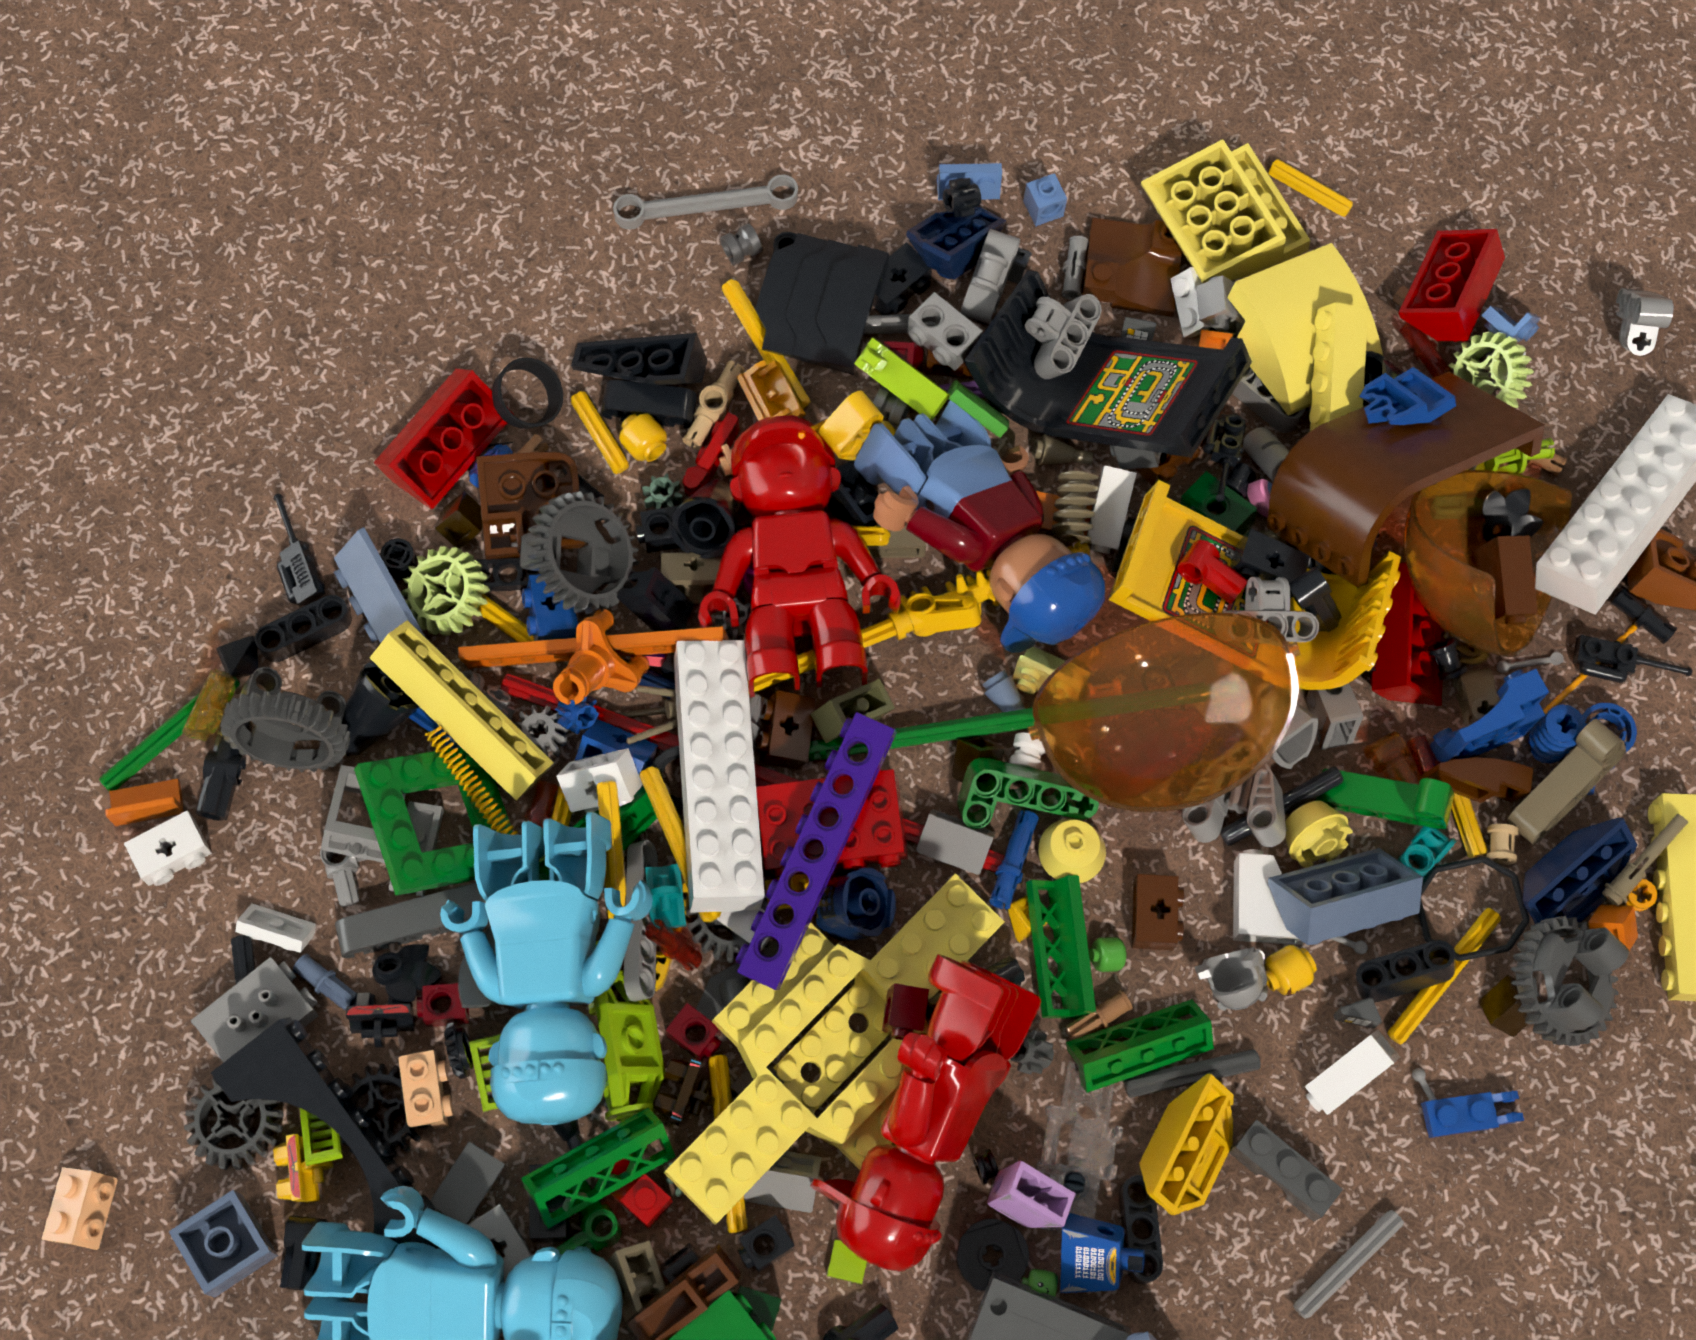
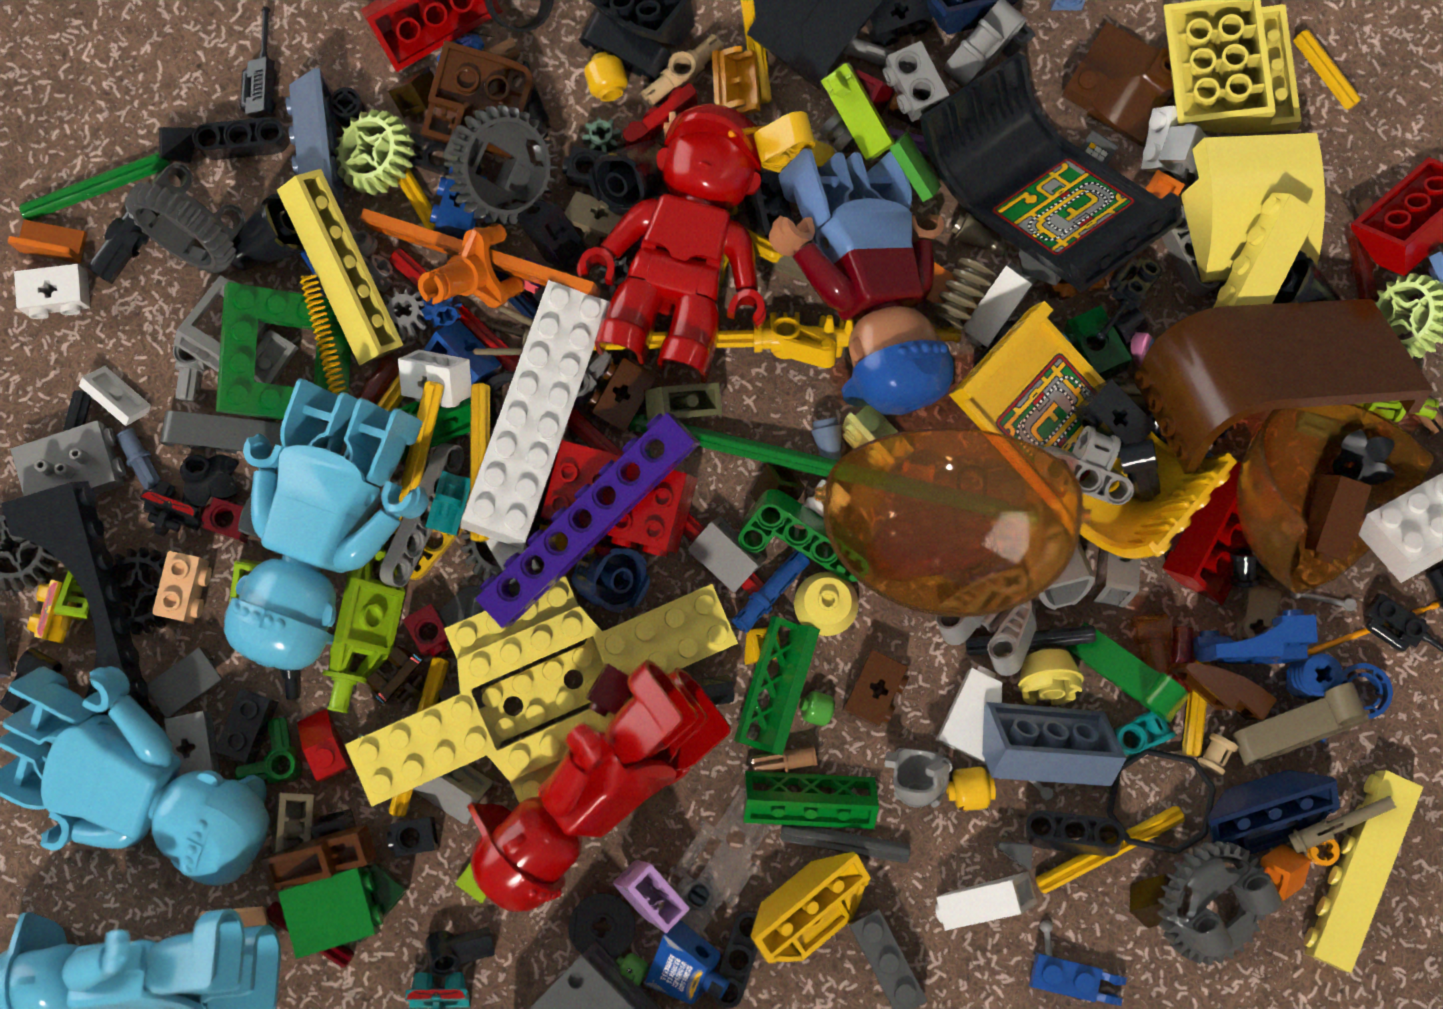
camera: 25 degrees right, 10 degrees up
(210, 705) = (136, 169): clear yellow plate -> none
(458, 1050) = (222, 564): black gear -> none
(597, 1160) = (293, 709): green fence -> none
(599, 432) = (571, 57): yellow axle -> none
(673, 945) = (440, 548): clear red pin -> none
(985, 1166) = (629, 848): black bush -> none
(1034, 1053) = (713, 769): dark grey gear -> none
(1052, 325) = (1016, 113): light grey piece -> none
(1075, 267) = (1068, 64): light grey pin -> none
(1203, 566) = (1053, 399): red piece -> none
(1265, 450) = (1166, 306): light grey pin -> none
(1406, 399) = (1312, 313): blue plate -> none

